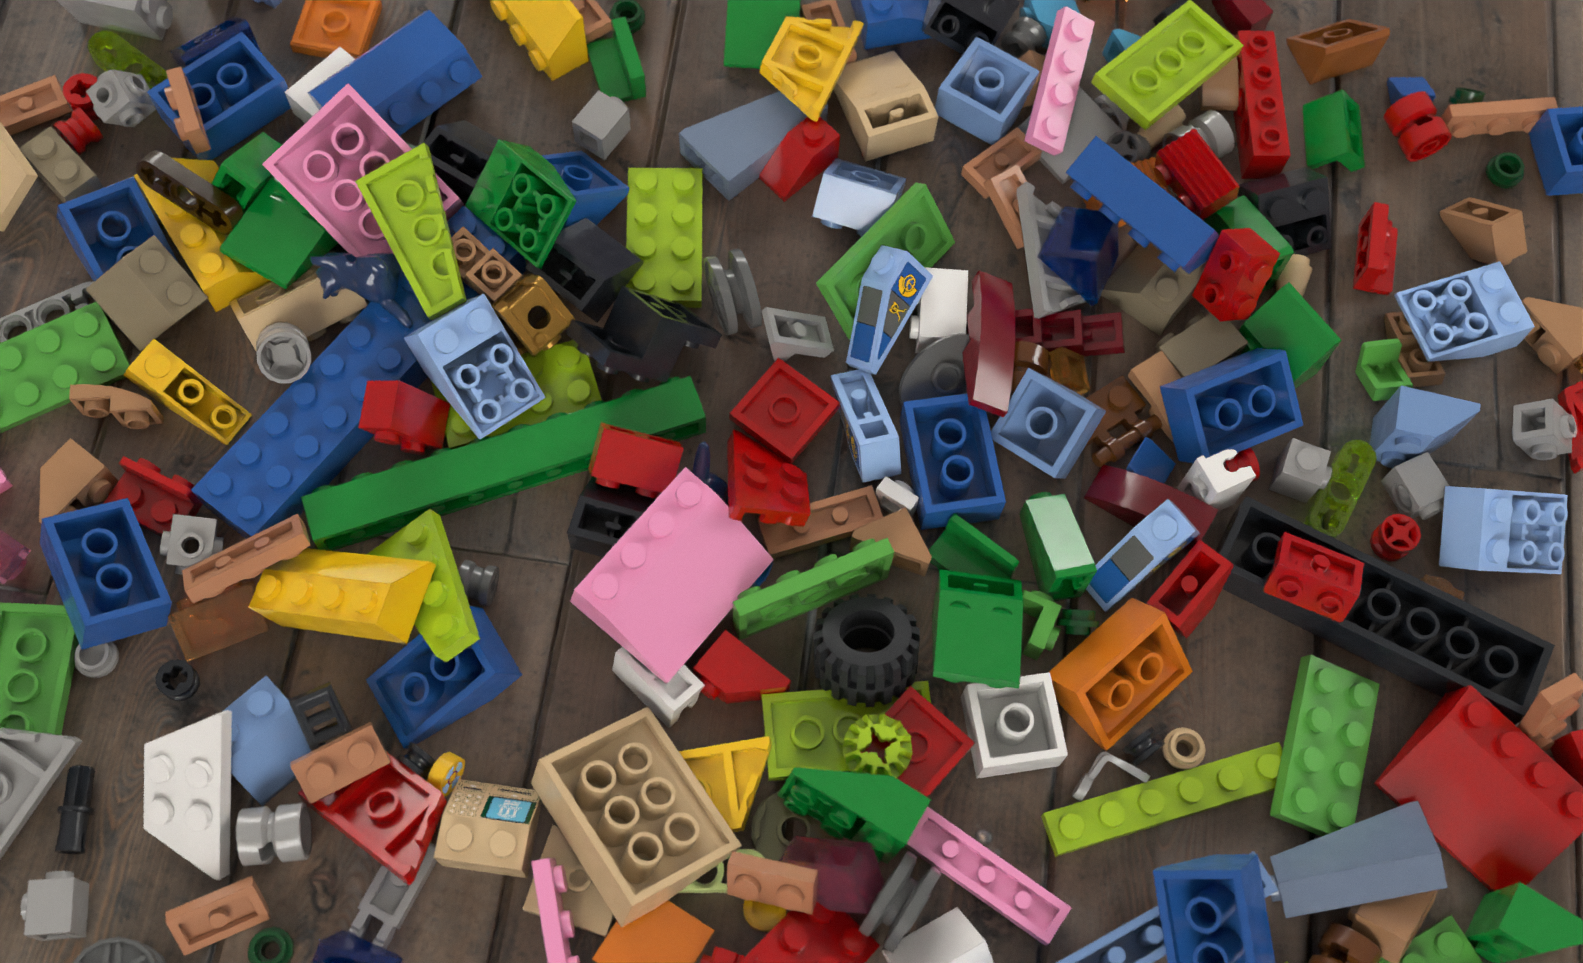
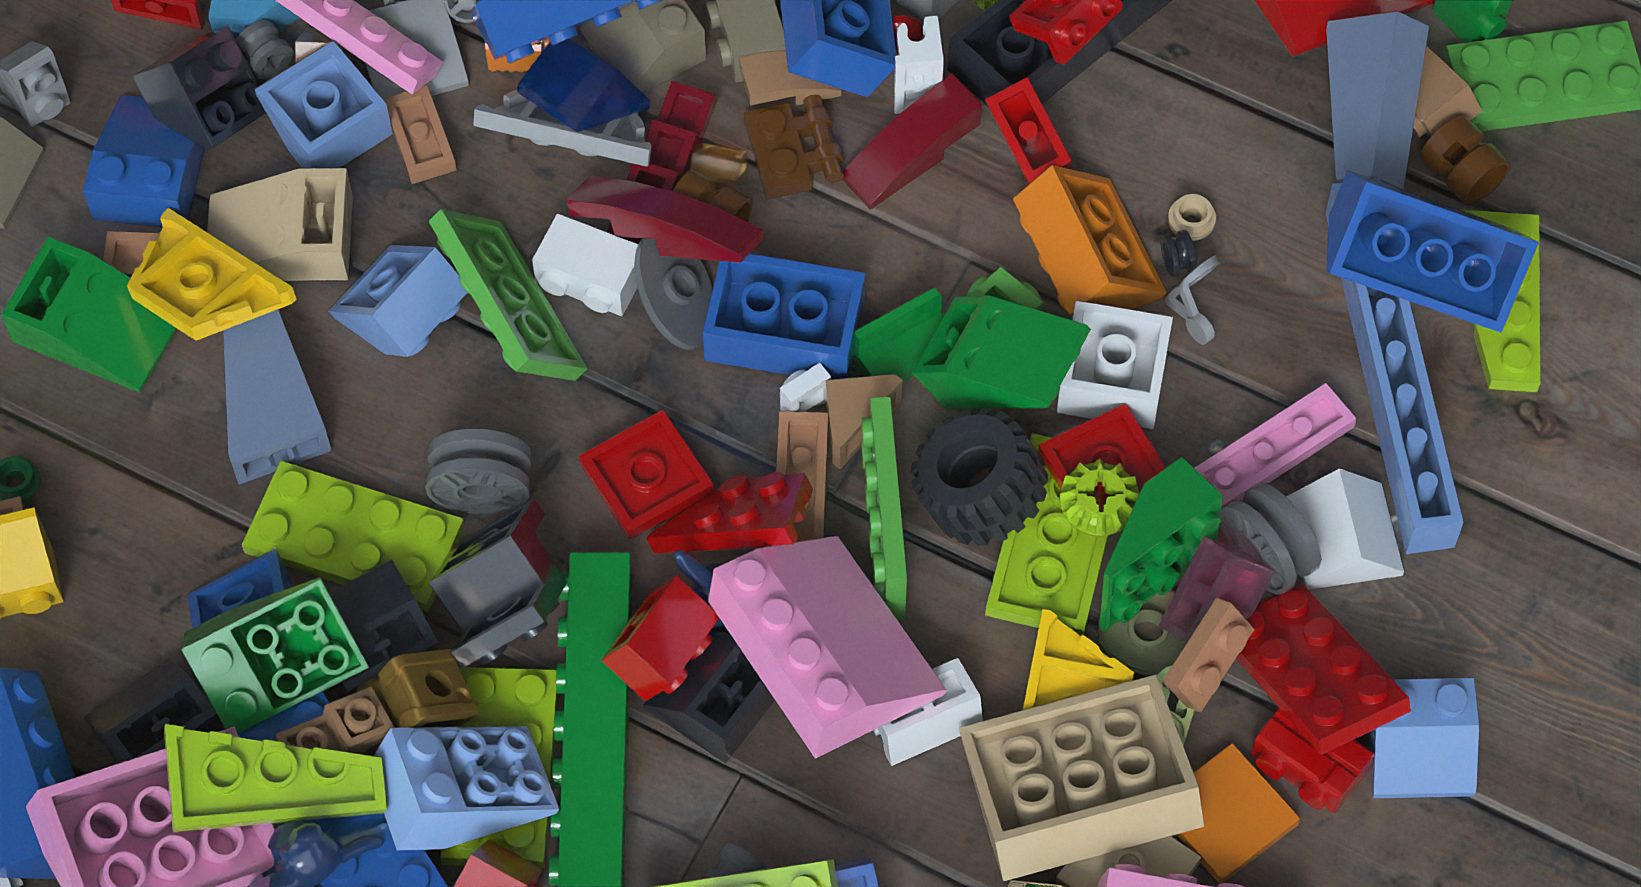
camera: 65 degrees left, 5 degrees down
(601, 124) = (172, 551): light grey brick -> none
(618, 64) = (86, 510): green panel -> none
(737, 672) = (950, 621): red slope -> none
(762, 916) = (1231, 693): yellow tile -> none
(796, 334) = (557, 430): light grey slope -> none
(801, 157) = (319, 346): red slope -> none
(867, 425) = (704, 390): light blue slope -> none
(884, 305) = (569, 317): slope -> none
(1004, 197) = (472, 142): nougat plate -> none
(1047, 424) = (787, 199): medium blue slope -> none
(1056, 546) = (926, 248): slope -> none
(1078, 621) = (1019, 260): dark green plate -> none
(1140, 554) = (972, 169): slope -> none
(1151, 462) = (857, 126): blue slope -> none
(1163, 800) = (1241, 256): lime plate -> none
(1324, 747) = (1239, 85): bright green plate -> none

